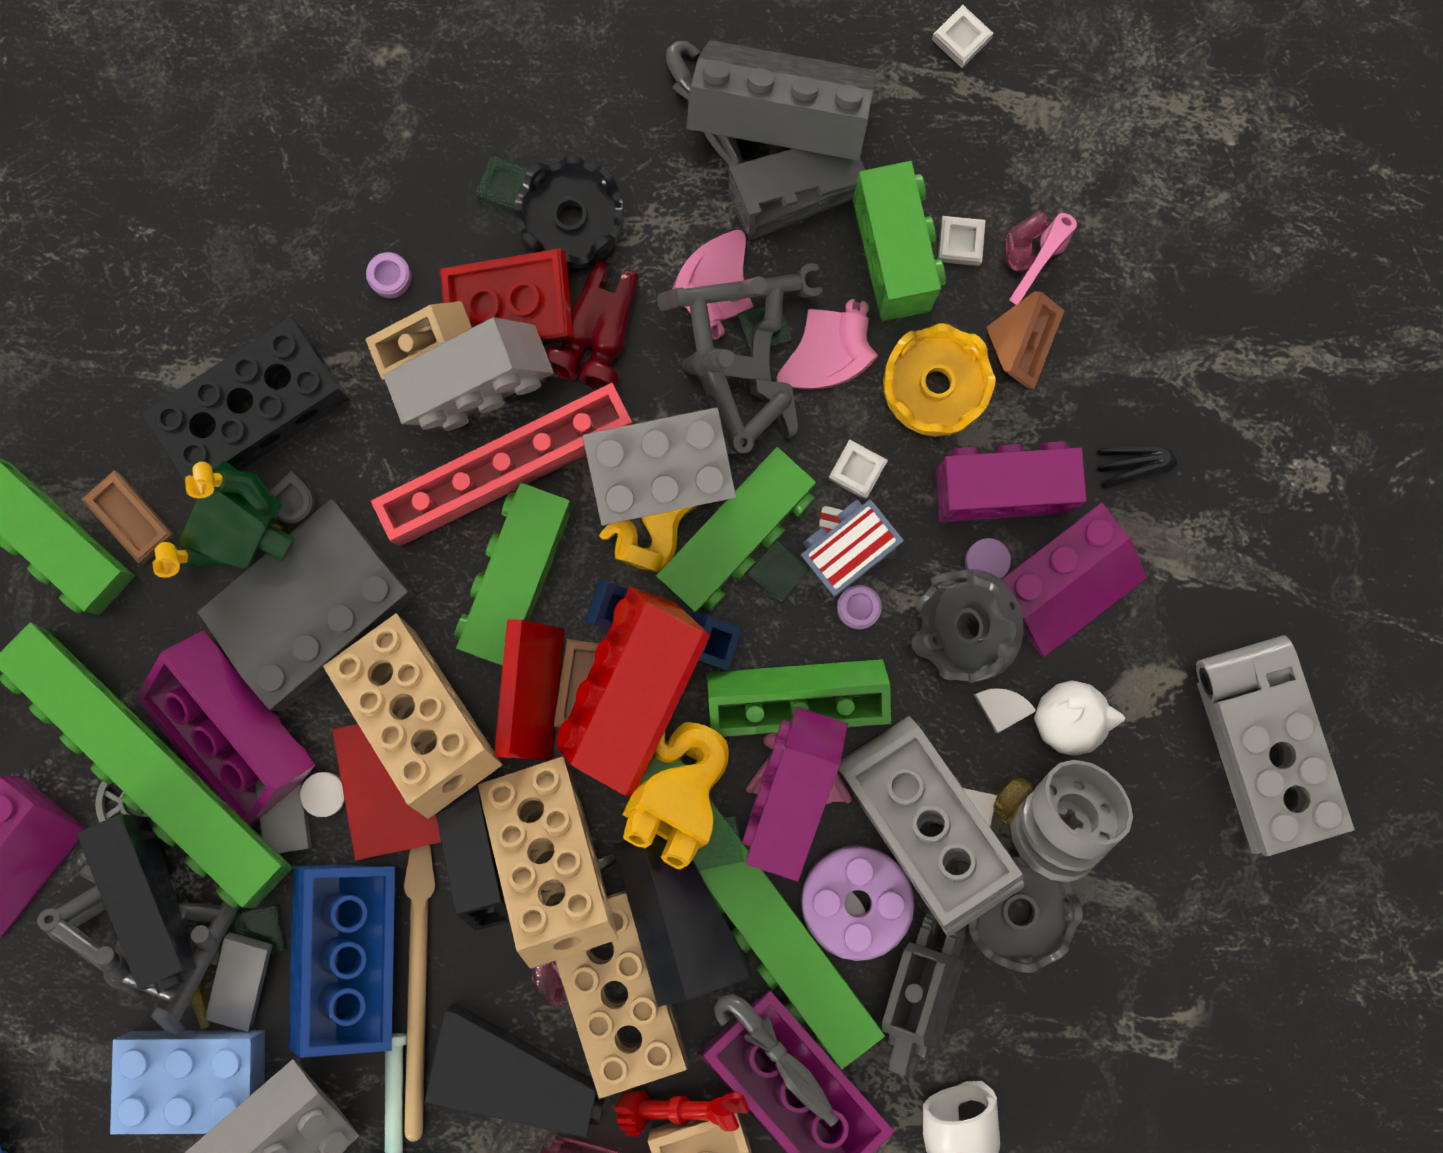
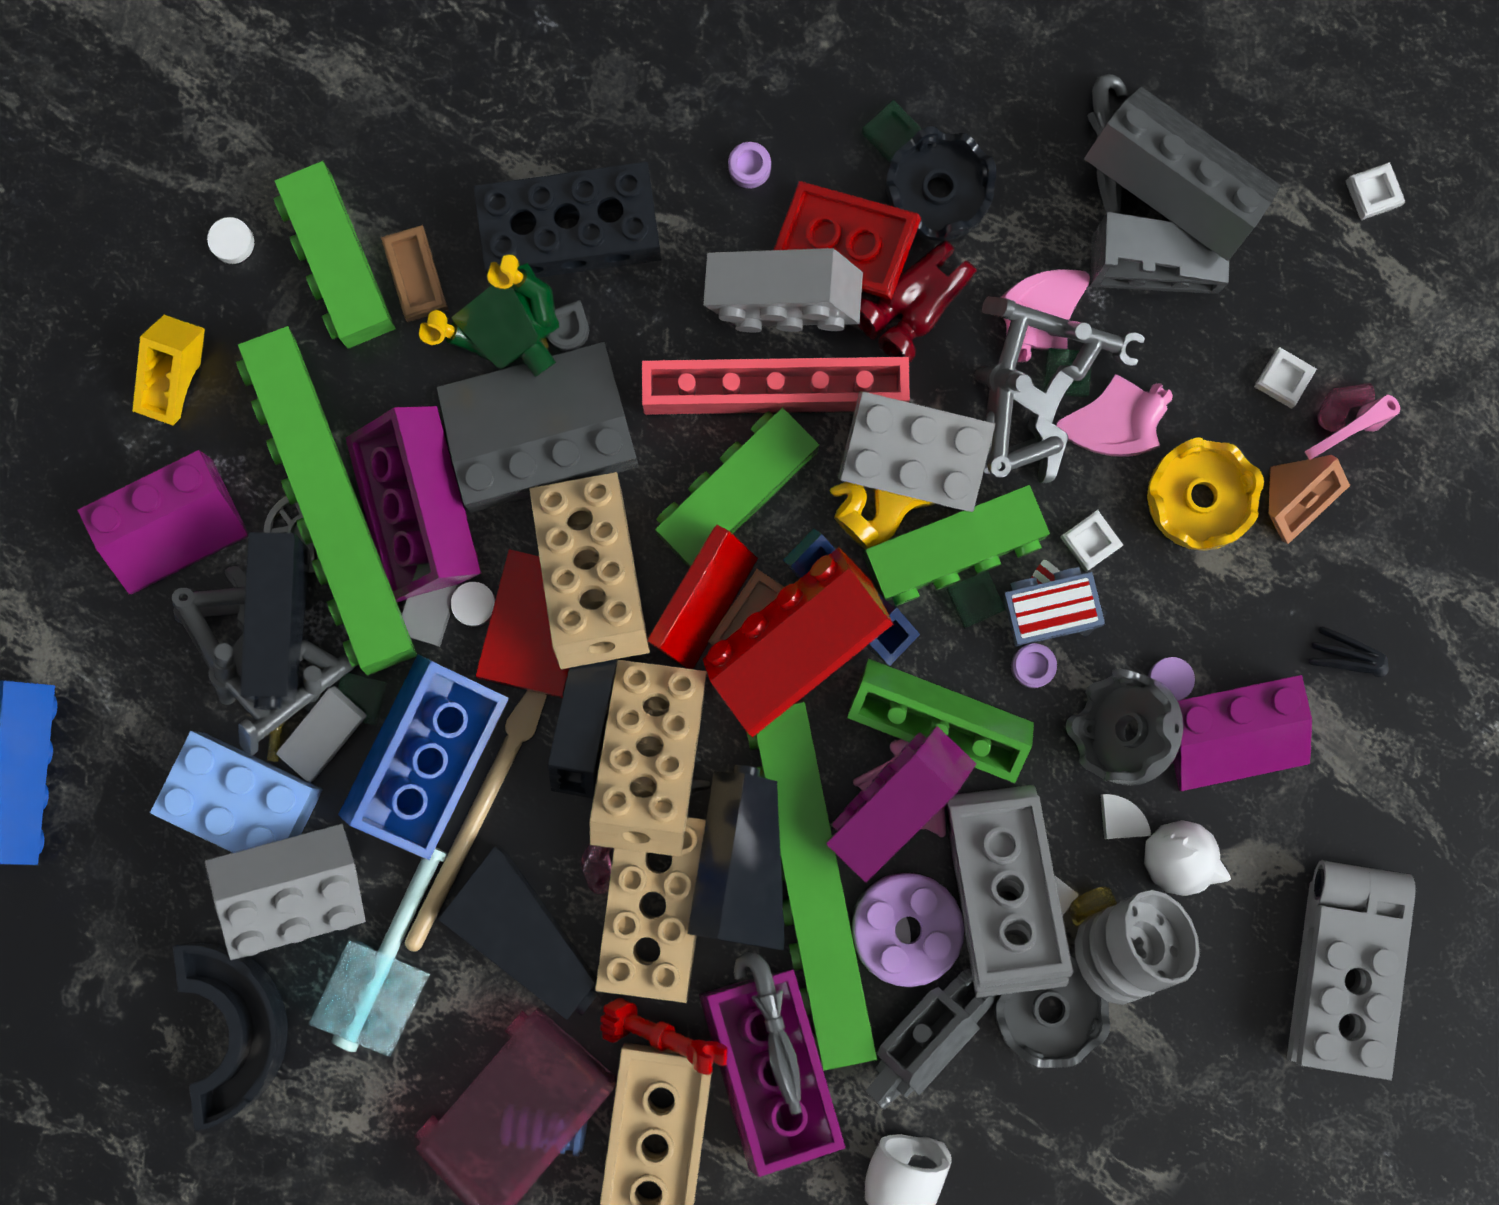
camera: 20 degrees right, 0 degrees up
(417, 334) = (752, 231): tan brick -> none
(677, 799) = (792, 757): yellow hips -> none
(723, 846) = (807, 814): clear green tile -> none
(898, 240) = (1228, 350): bright green brick -> none
(1010, 482) = (1226, 617): magenta brick -> none

